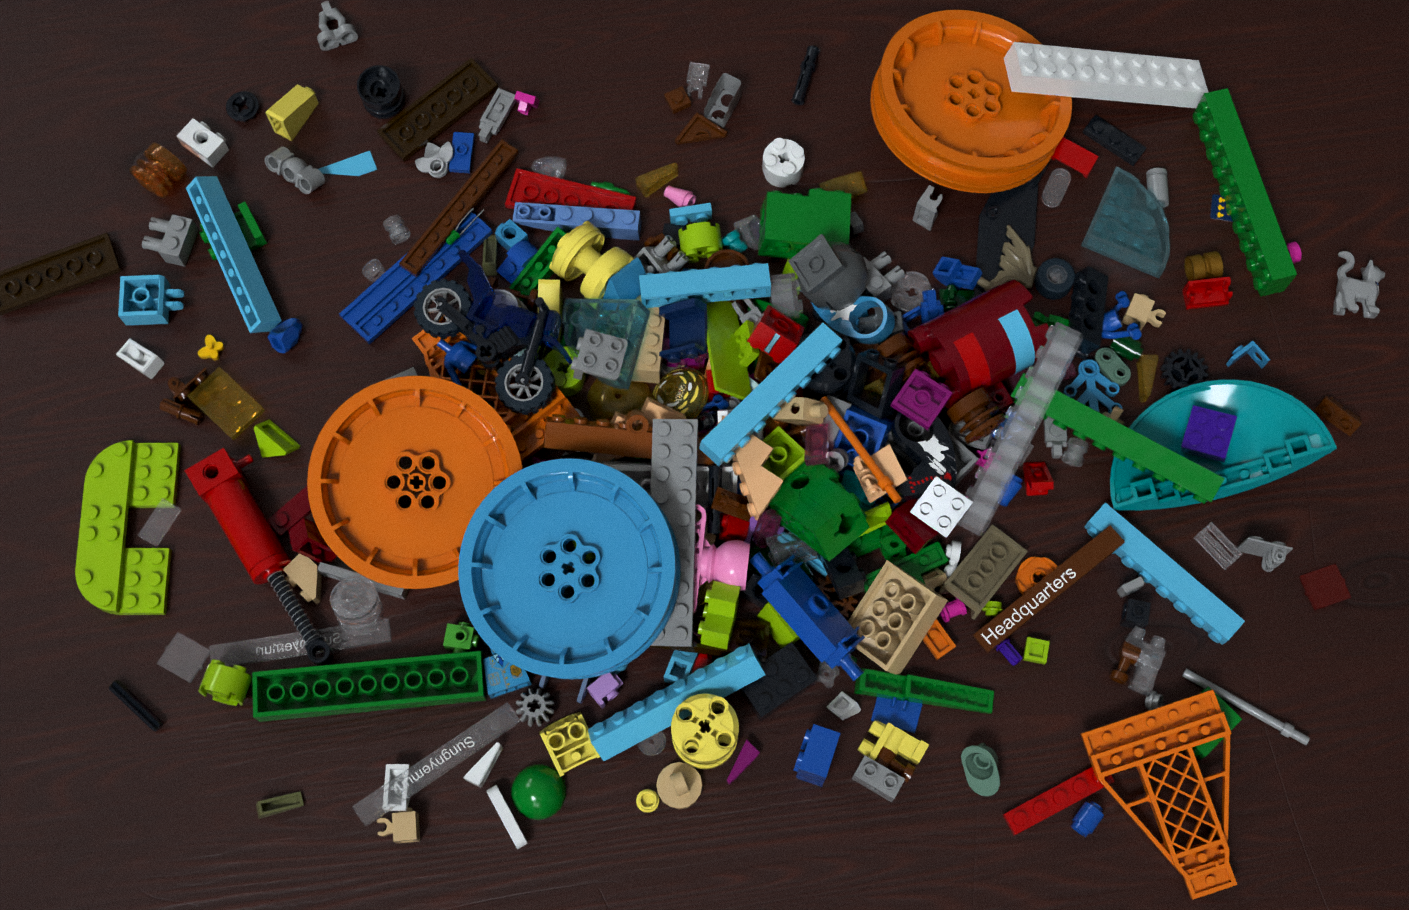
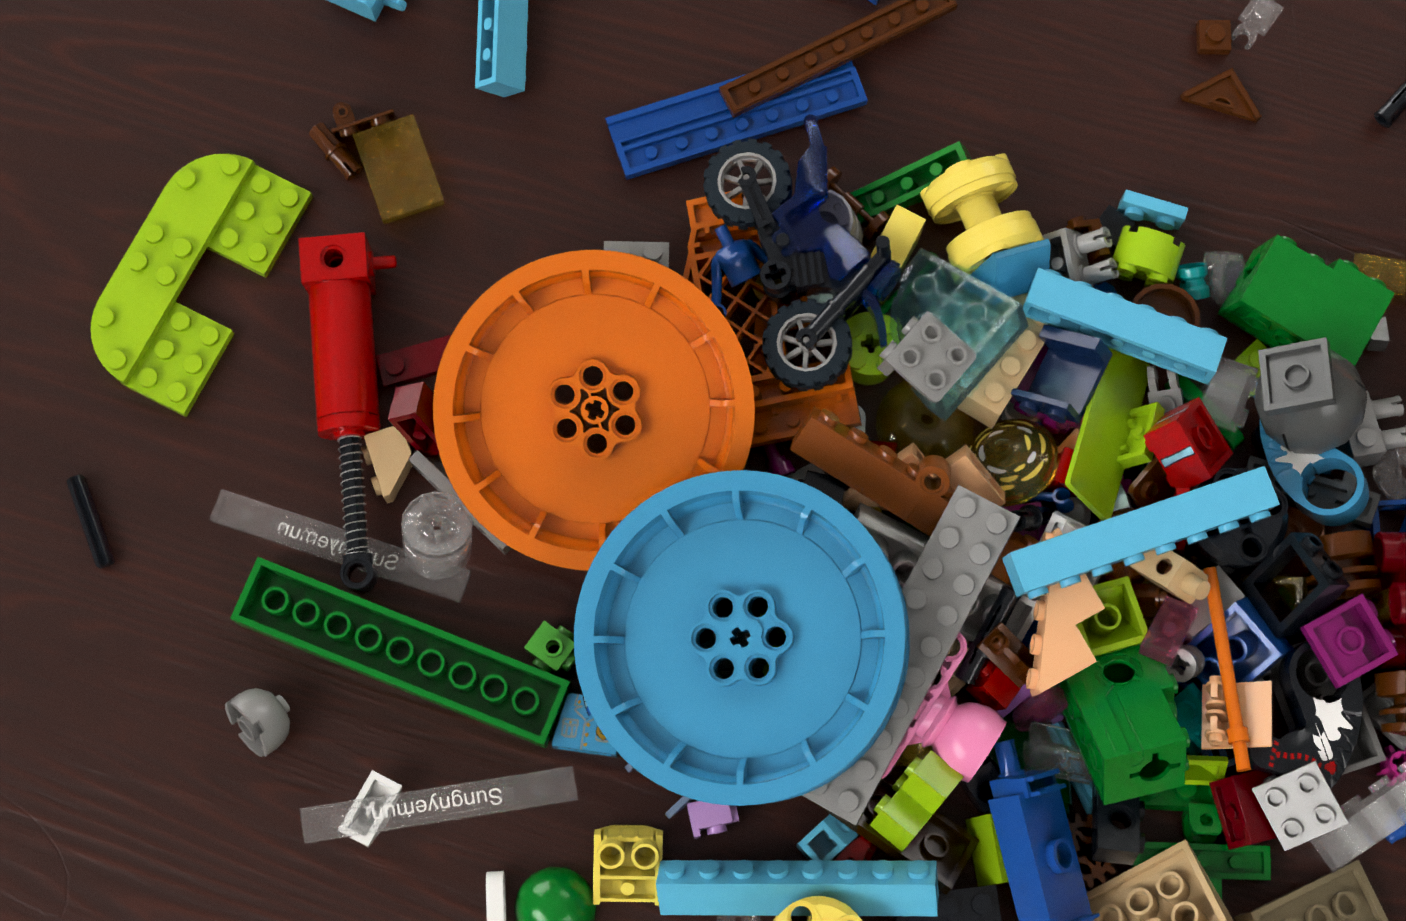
camera: 25 degrees right, 5 degrees up
(140, 358) = (316, 52): white slope -> none
(159, 522) = (236, 289): clear plate -> none
(183, 657) = (182, 487): clear piece -> none
(211, 349) = (415, 83): yellow piece -> none
(225, 683) = (217, 553): lime brick -> none
(273, 440) = (437, 251): lime slope -> none
(279, 804) = (210, 749): olive piece -> none
(285, 335) = (521, 113): blue rock -> none
(301, 769) = (260, 718): none -> light grey cylinder
(372, 269) = (679, 77): clear tile -> none
(396, 228) = (739, 38): clear wheel -> none
(403, 826) = (355, 865): tan brick -> none
(455, 235) = (813, 84): piece -> none
(480, 771) = (492, 842): white slope -> none
(490, 256) = (848, 135): olive piece -> none
(506, 229) = (889, 136): dark azure brick -> none
(517, 259) = (881, 160): blue brick -> none
(530, 700) = (605, 804): light grey gear -> none
(544, 189) = (976, 91): red wing -> none
(550, 166) = (989, 51): clear rock -> none
(609, 186) = (1057, 119): green piece -> none
(611, 222) = (955, 121): medium blue slope -> none
(654, 180) = (1125, 137): clear yellow slope -> none
(680, 196) = (1149, 178): bright pink cone -> none
(731, 86) = (1298, 53): light grey piece -> none
(783, 162) = (1335, 196): white brick -> none
(935, 578) = (1239, 895): tan tile -> none
(953, 553) = (1283, 872): white plate -> none

